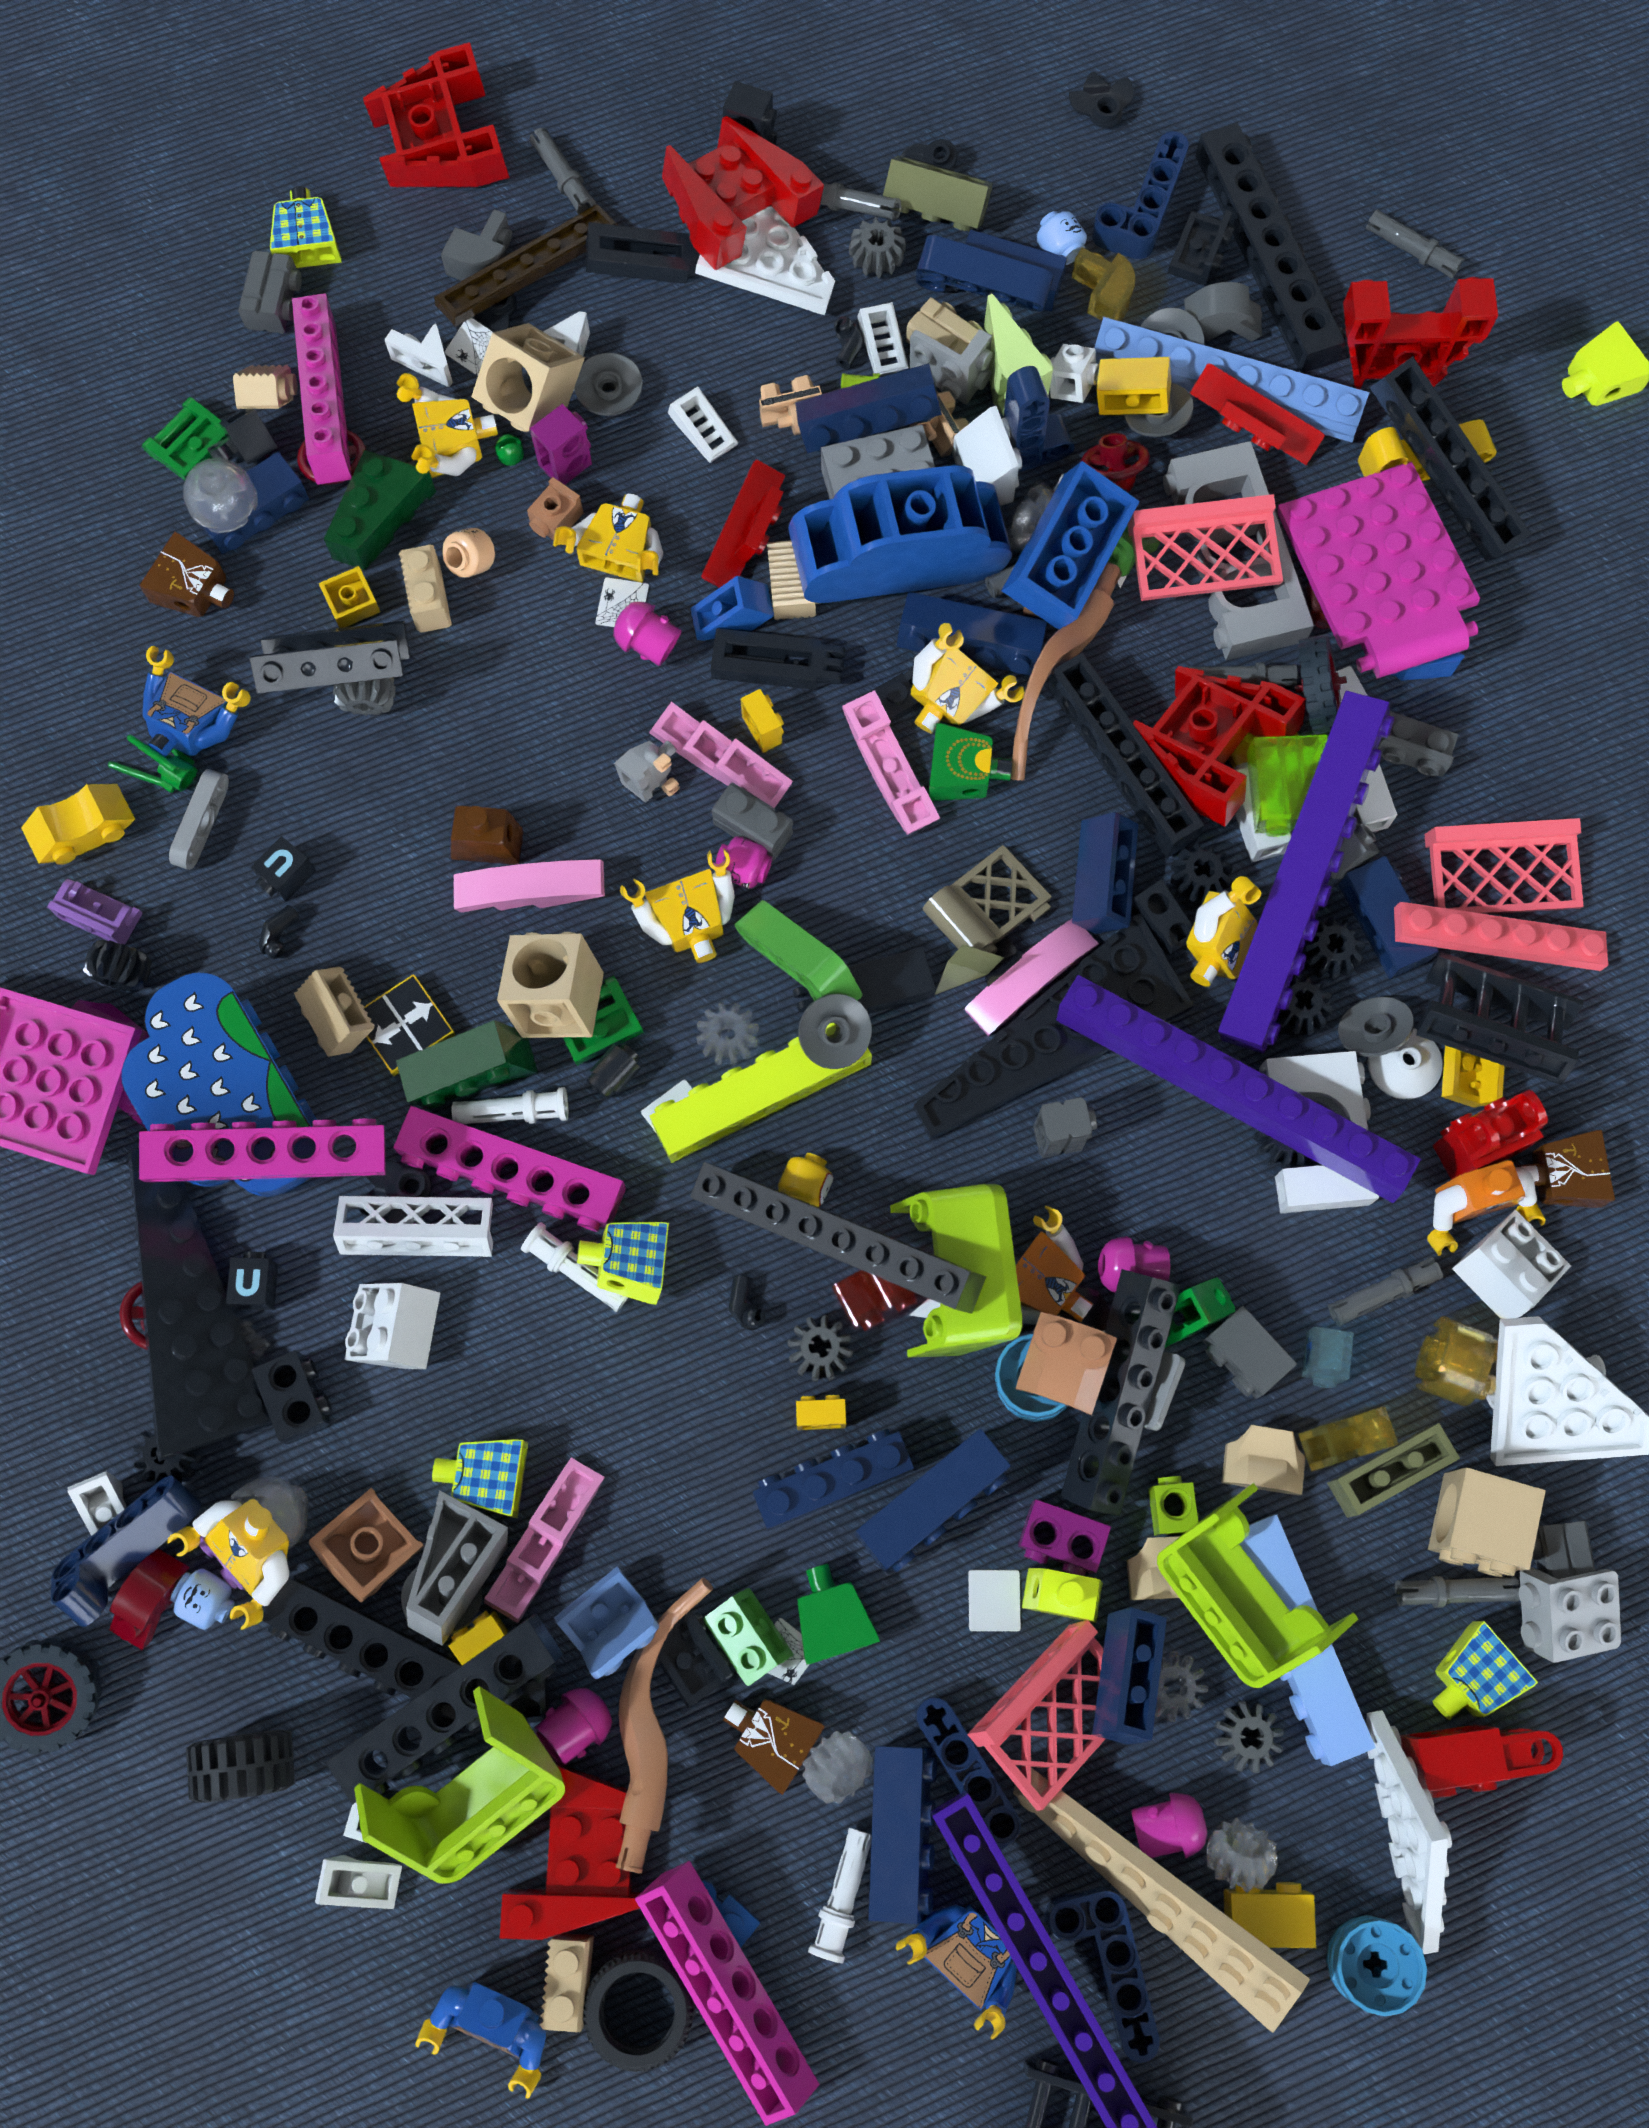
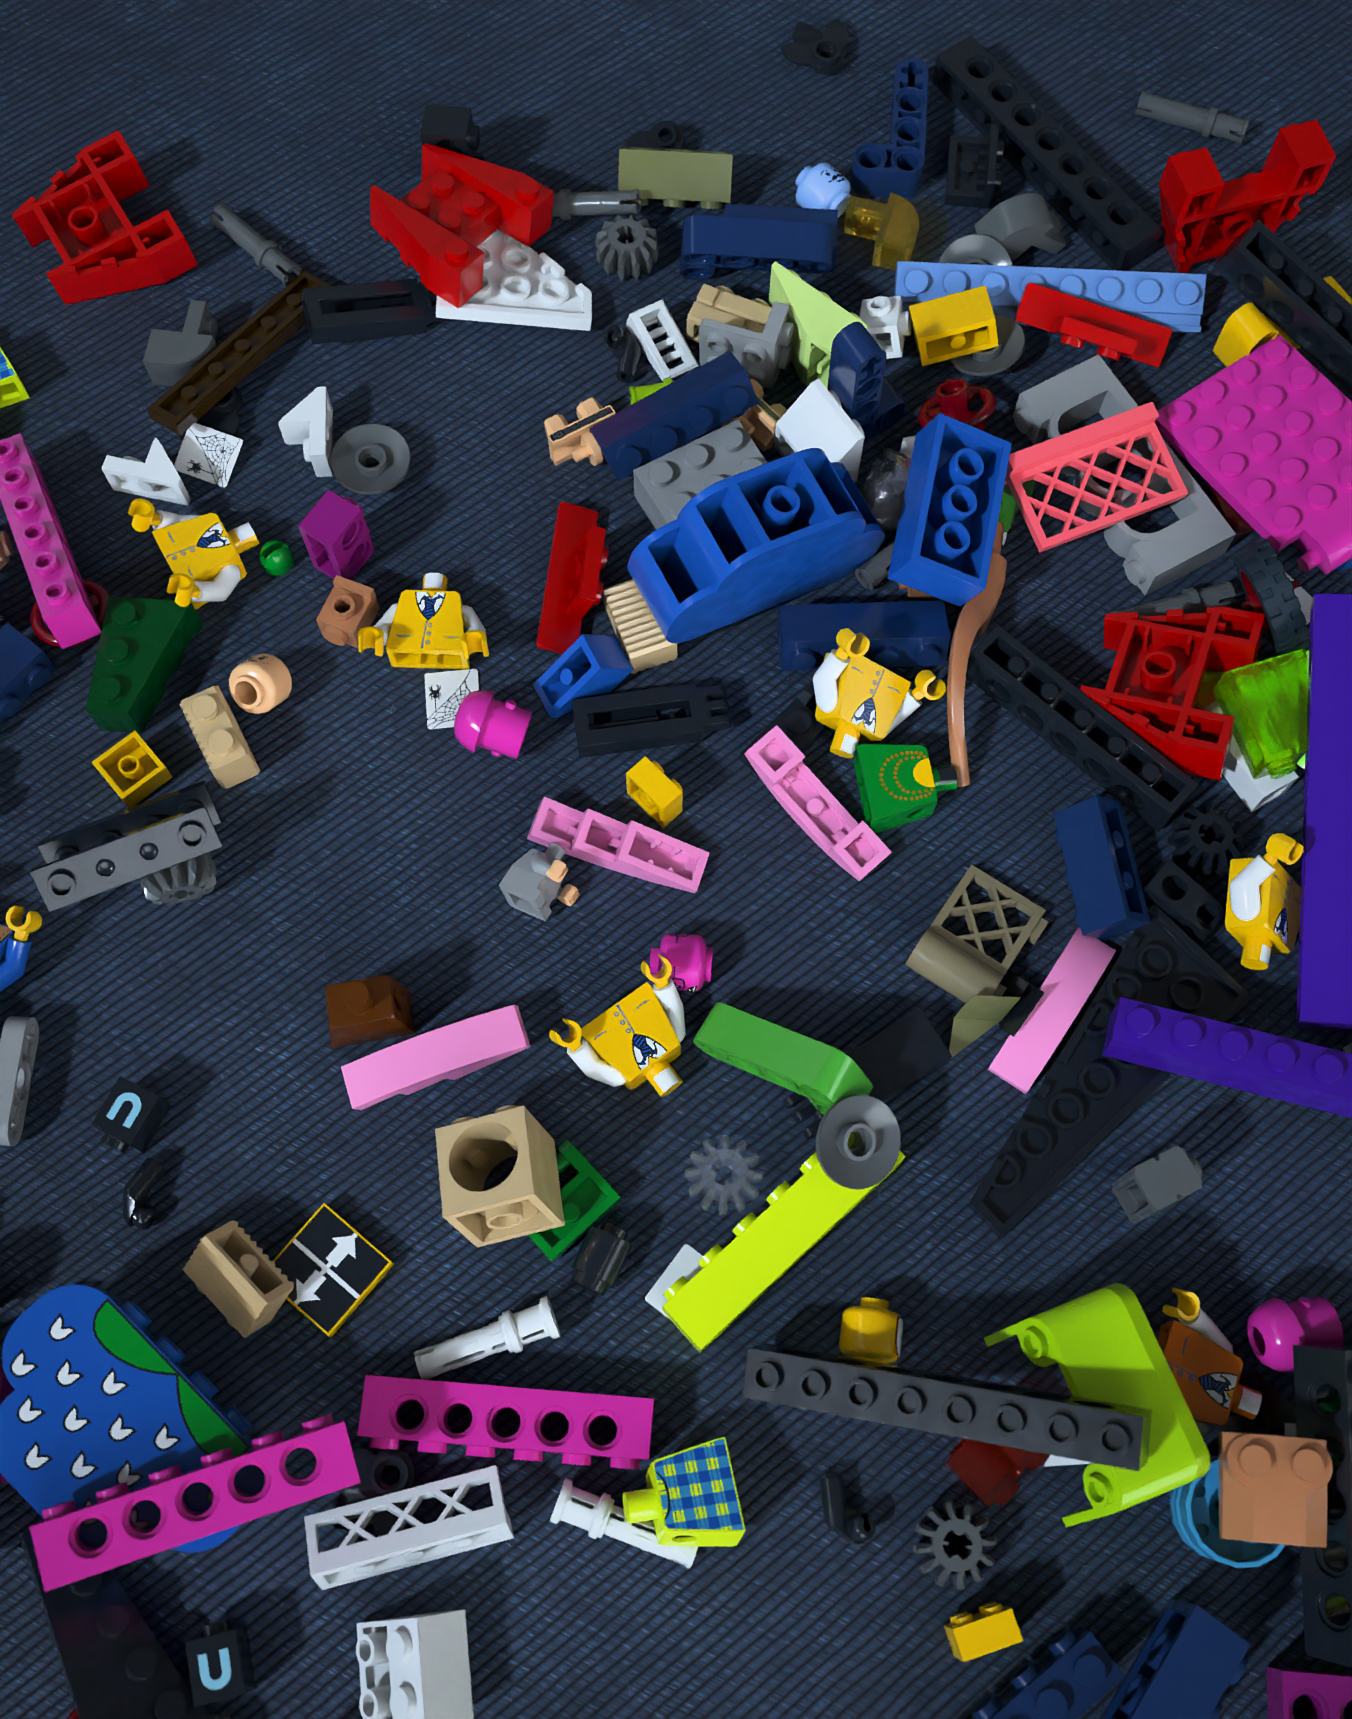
camera: 15 degrees left, 5 degrees down
(466, 1065) = (418, 1303): dark green wedge -> none
(550, 367) = (301, 449): tan brick -> none
(696, 399) = (487, 461): white slope -> none
(748, 816) = (677, 908): dark grey brick -> none

